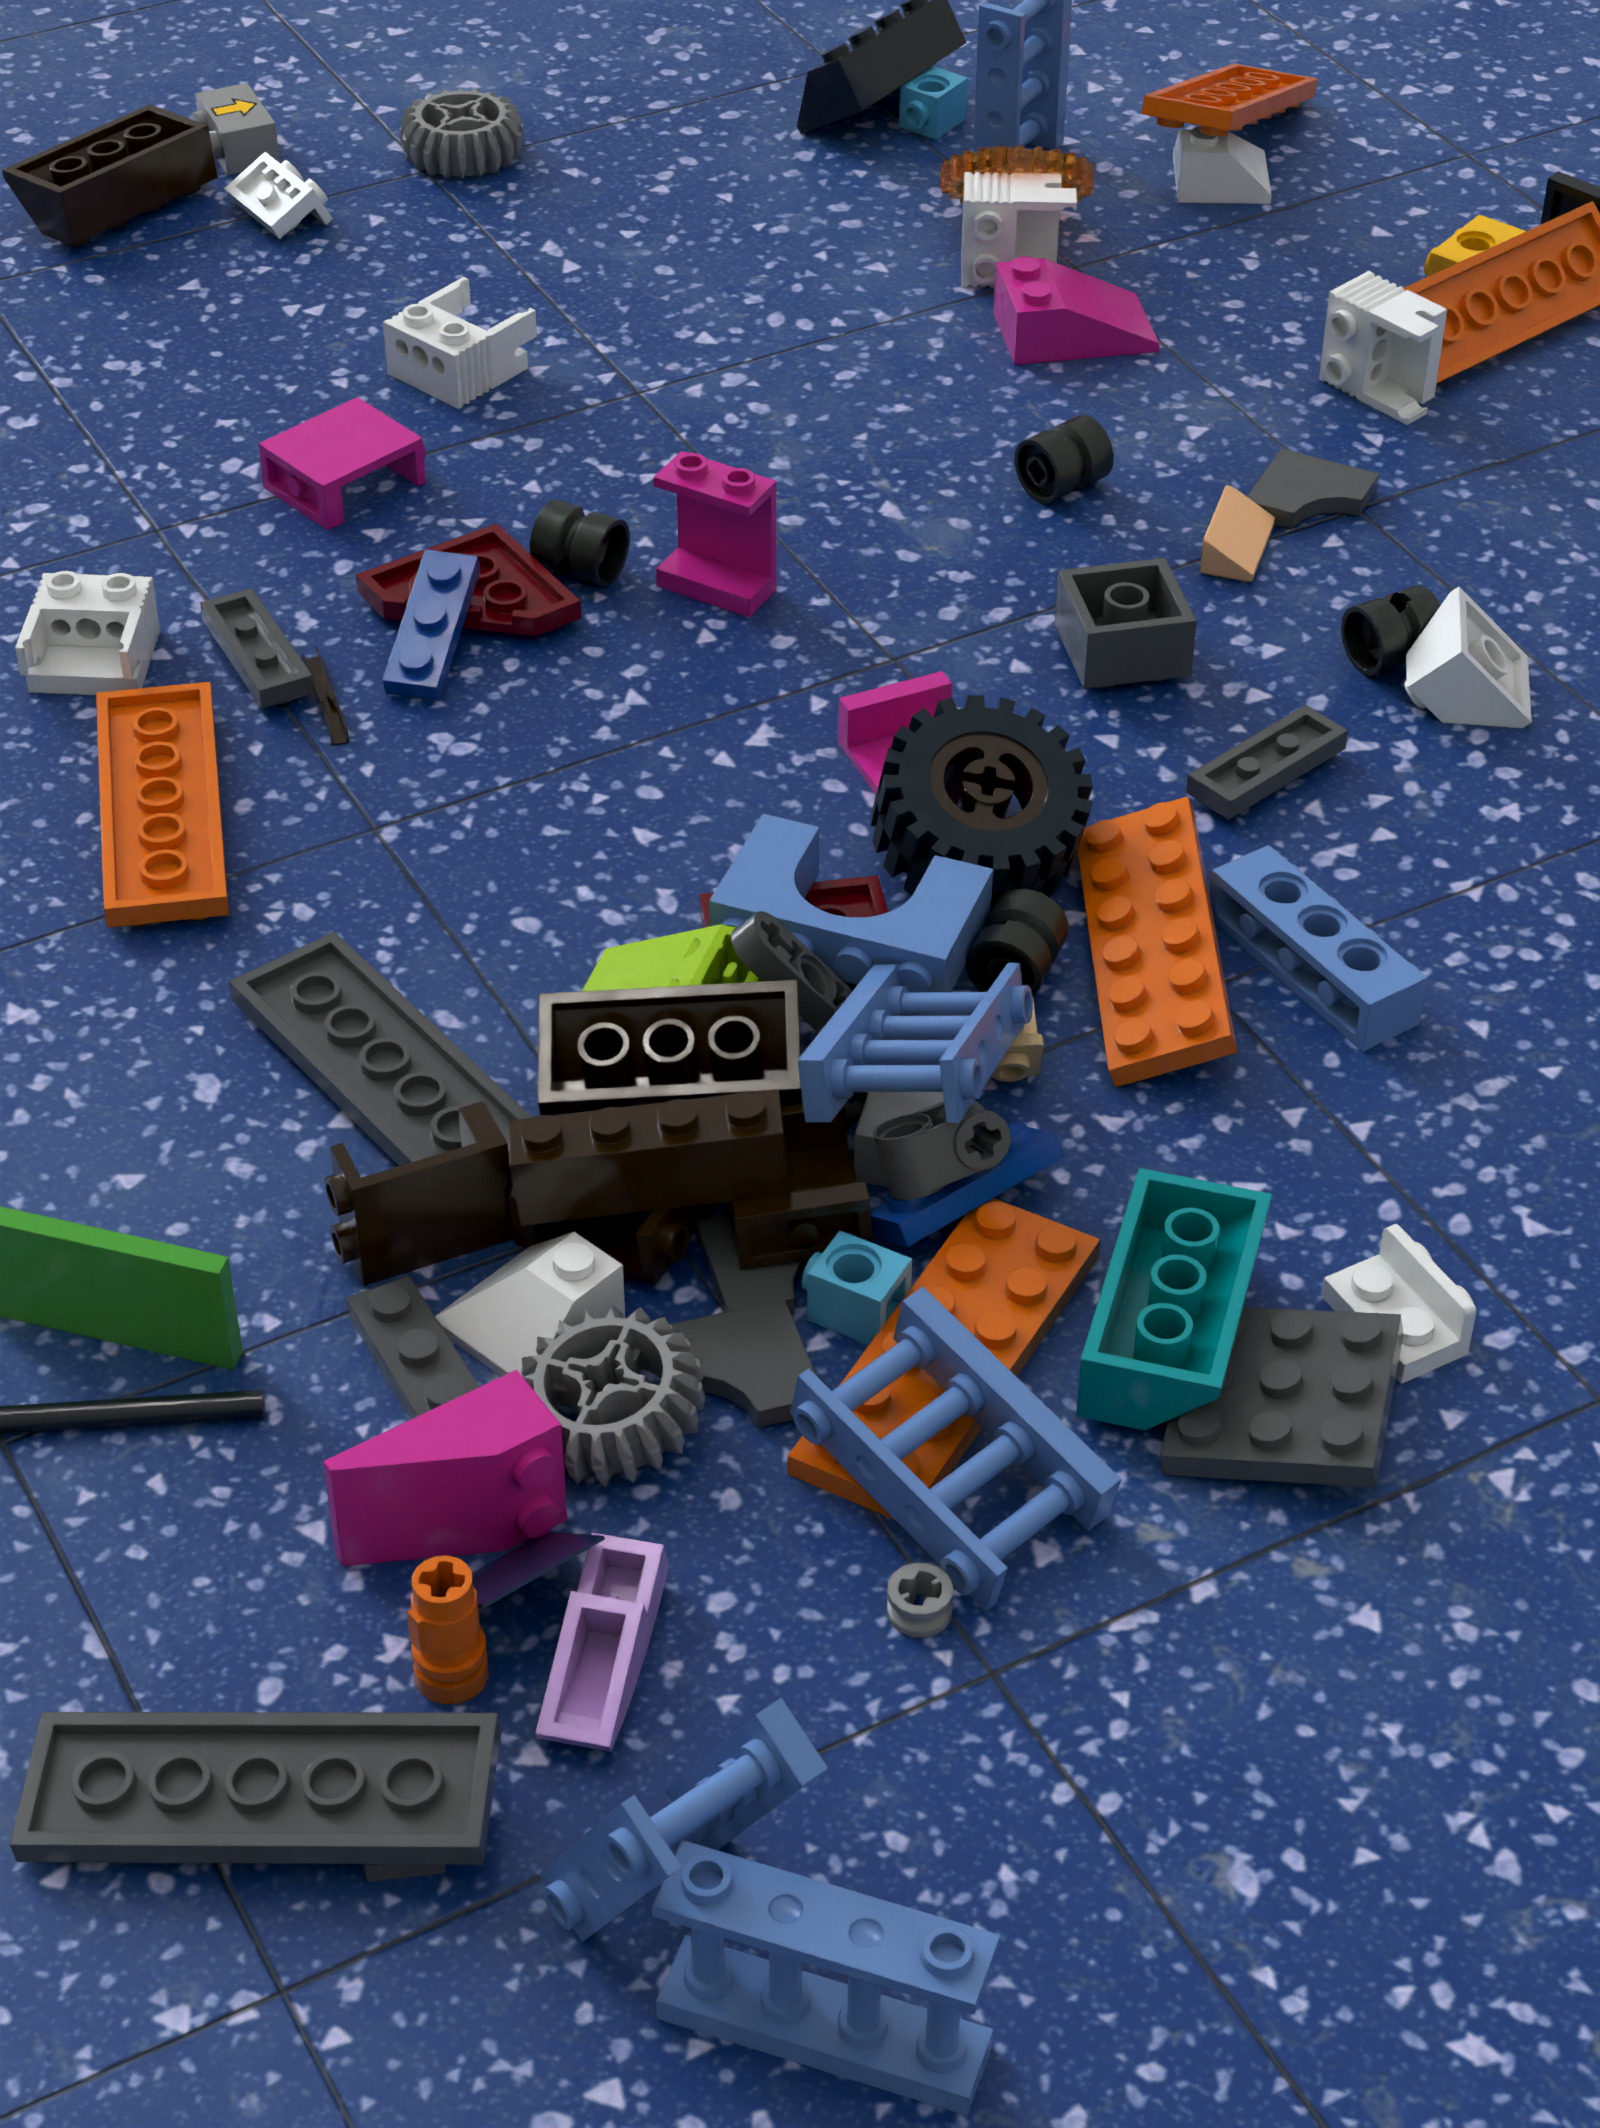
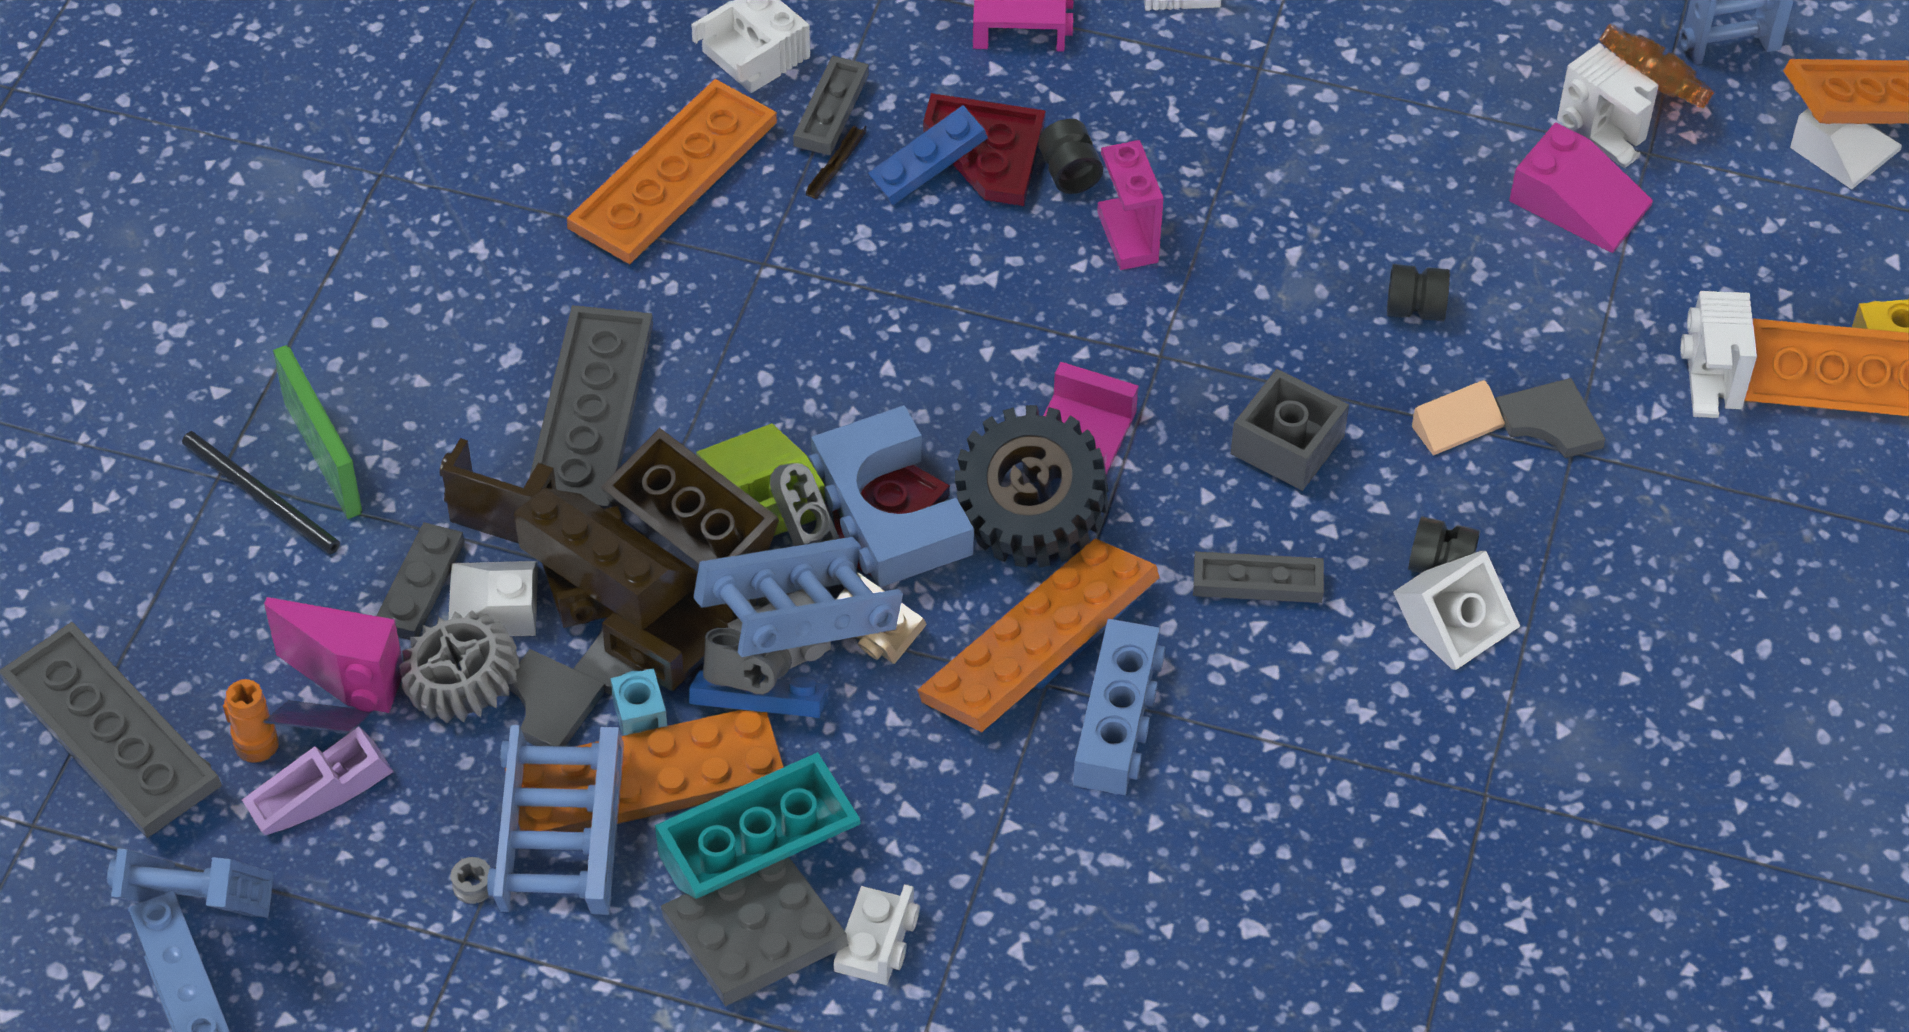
camera: 45 degrees right, 10 degrees up
(1022, 930) = (959, 583): pearl dark grey wheel -> none

